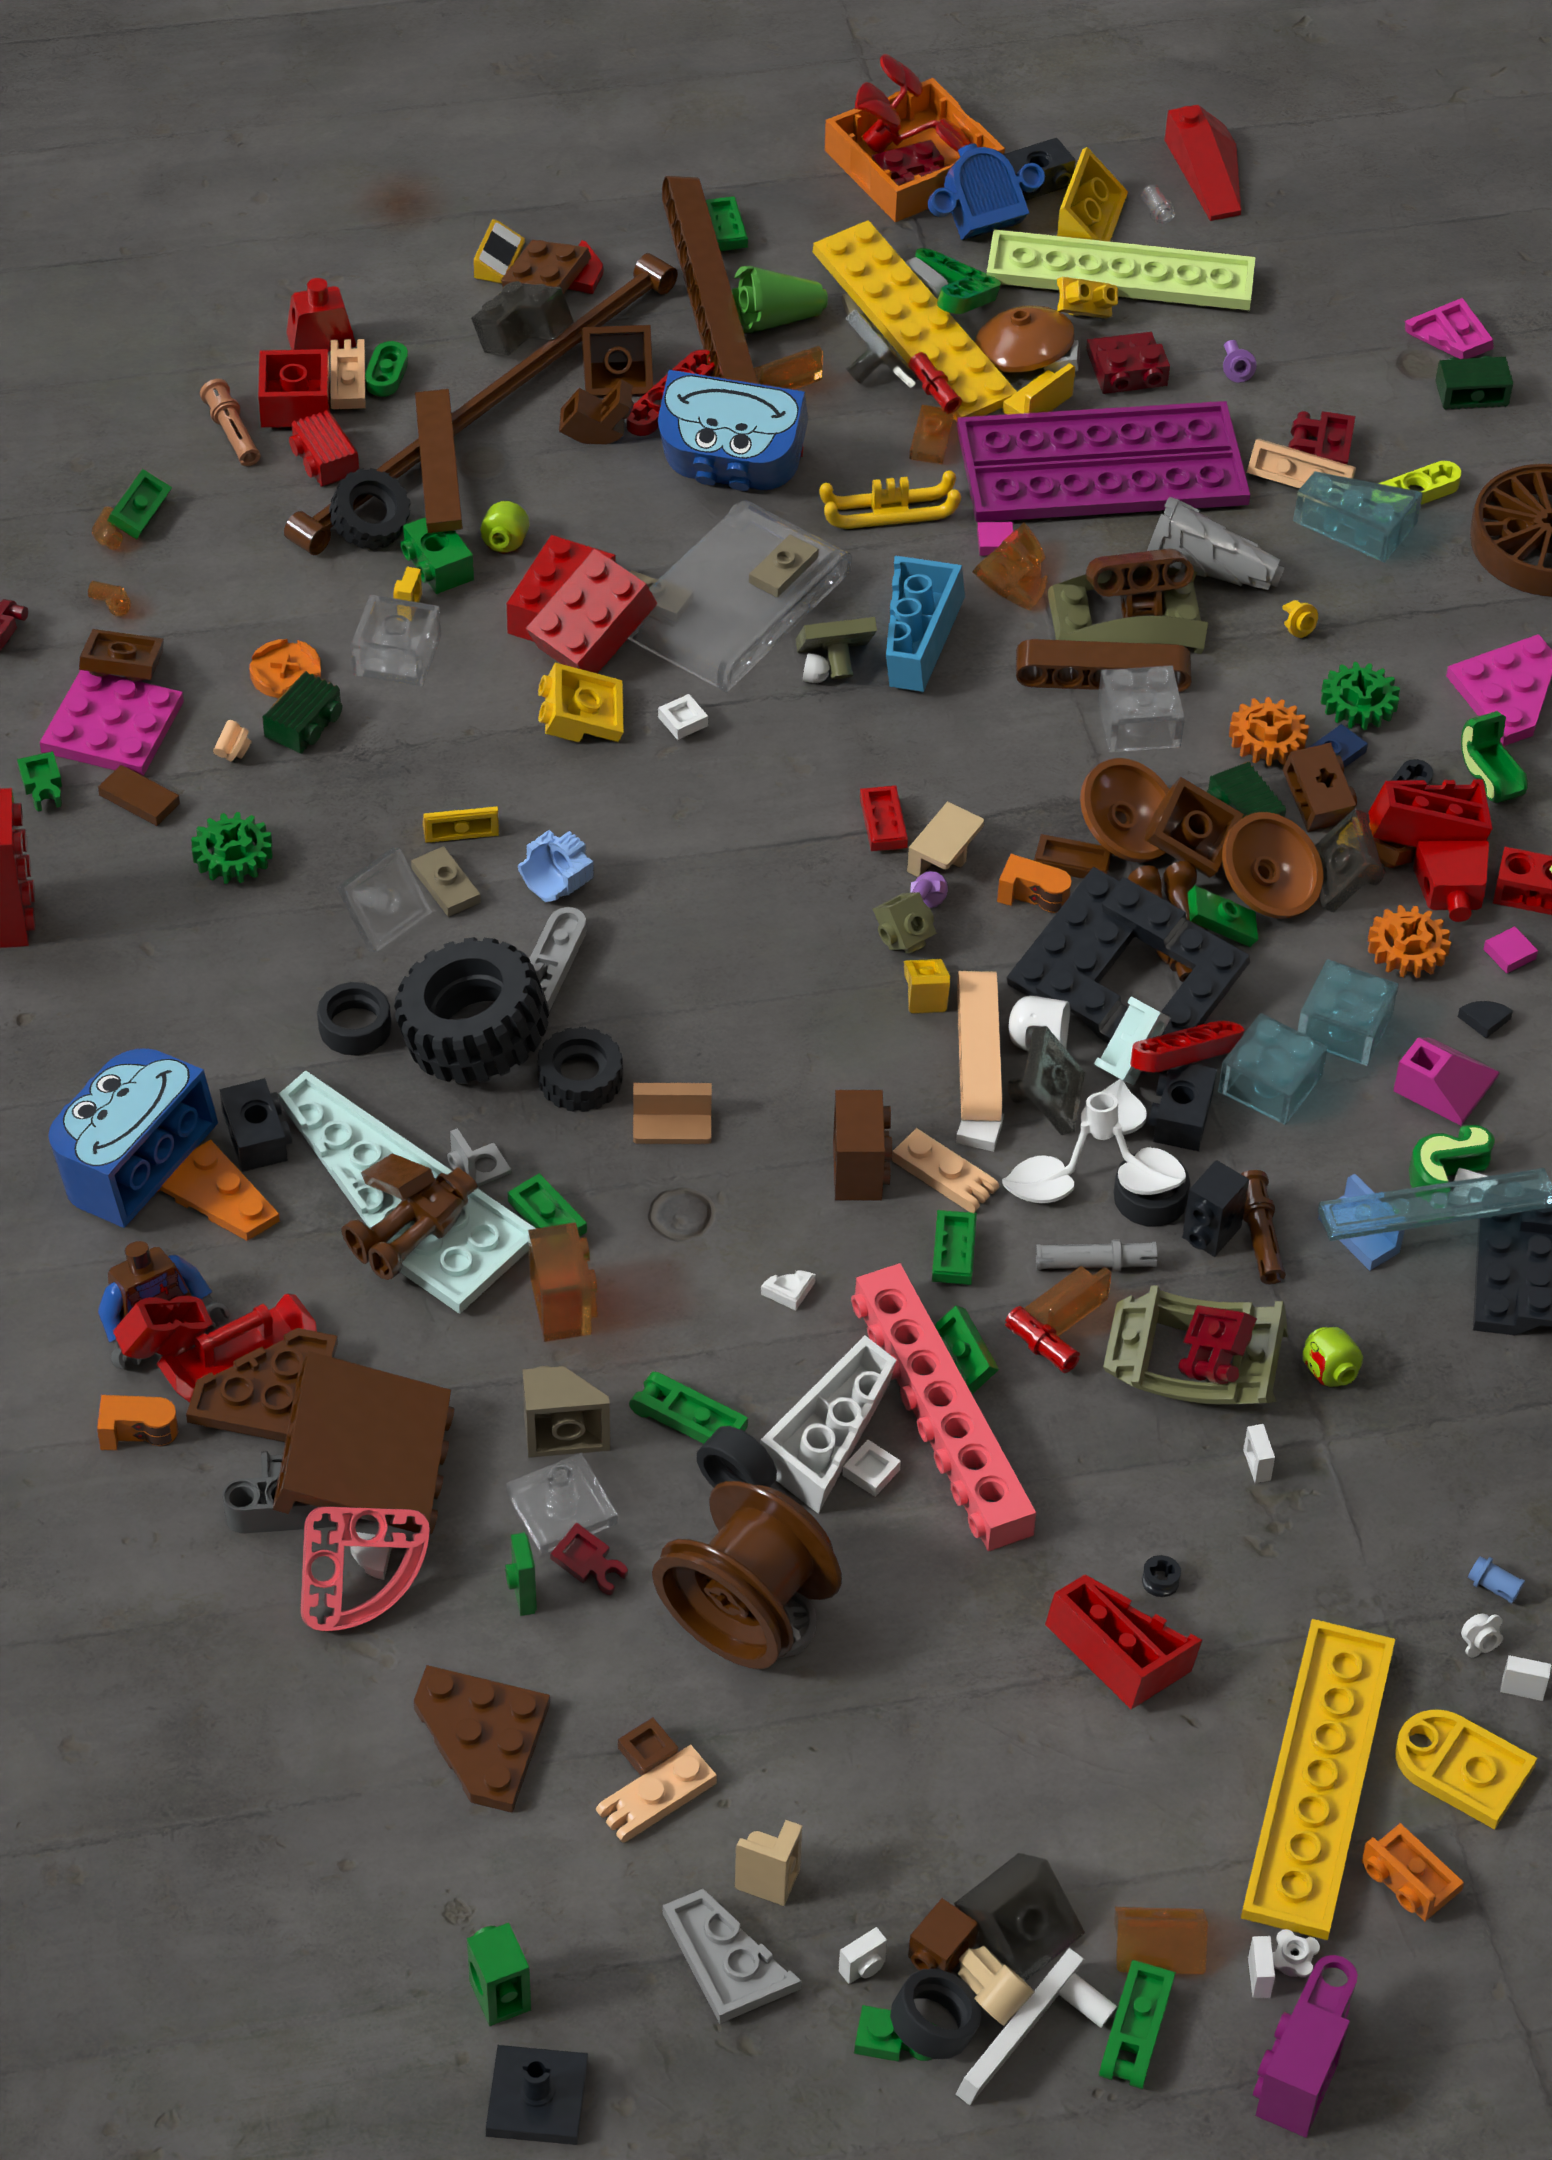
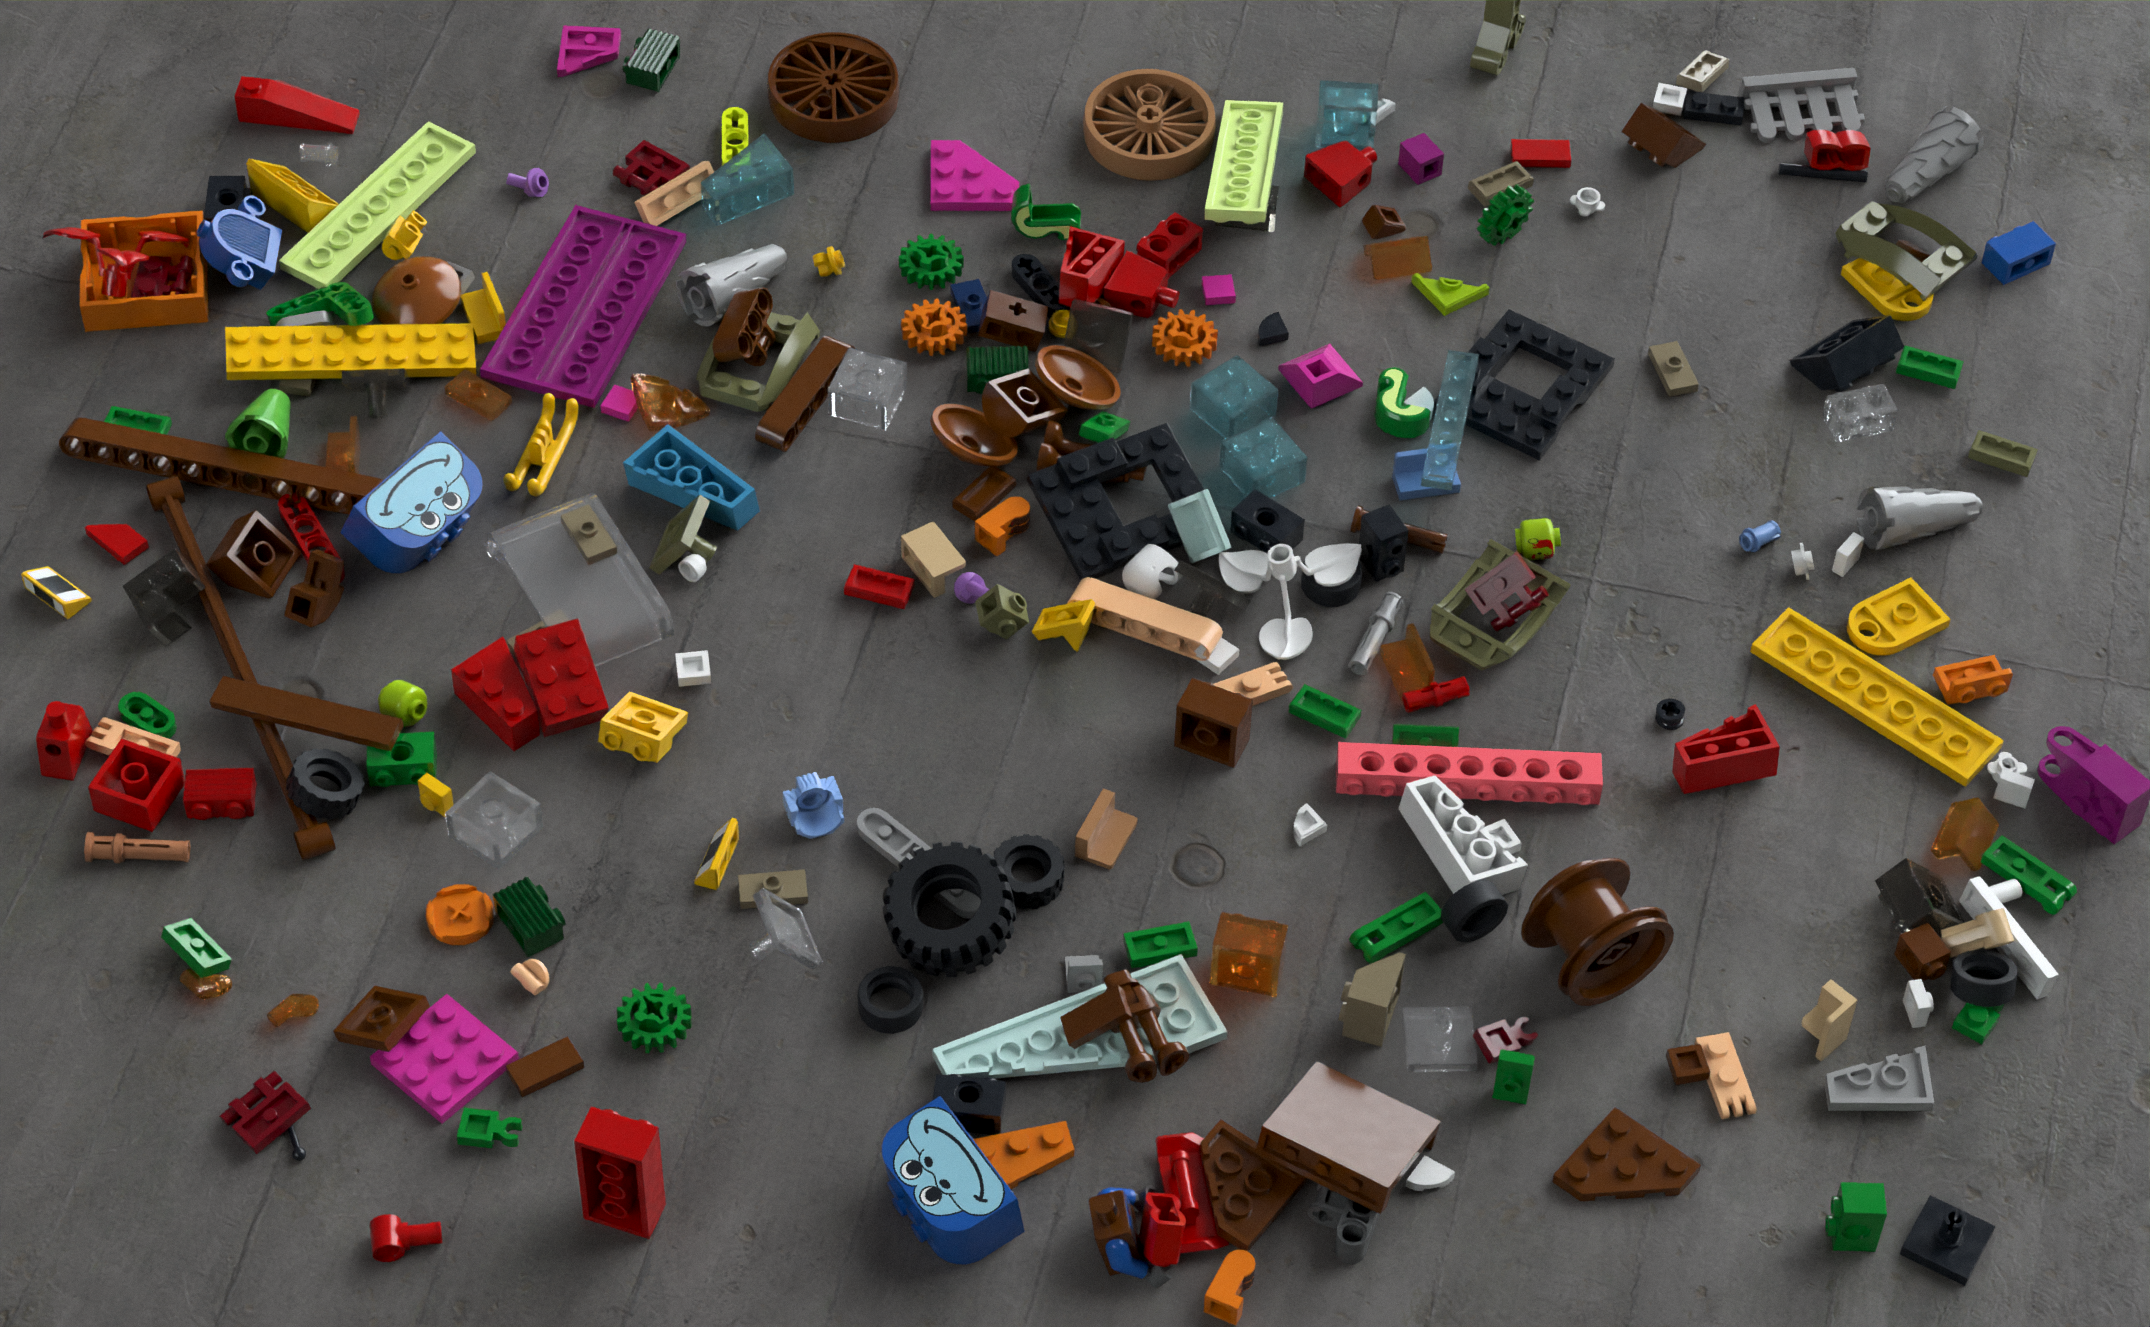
camera: 65 degrees left, 0 degrees up
(346, 1535) = (1428, 1179): coral beam -> none
(548, 264) = (105, 563): reddish brown plate -> none
(935, 383) = (414, 364): red pin -> none
(1128, 362) = (484, 244): dark red plate -> none
(1185, 1046) = (1225, 496): red beam -> none
(1259, 1453) = (1598, 614): white tile -> none

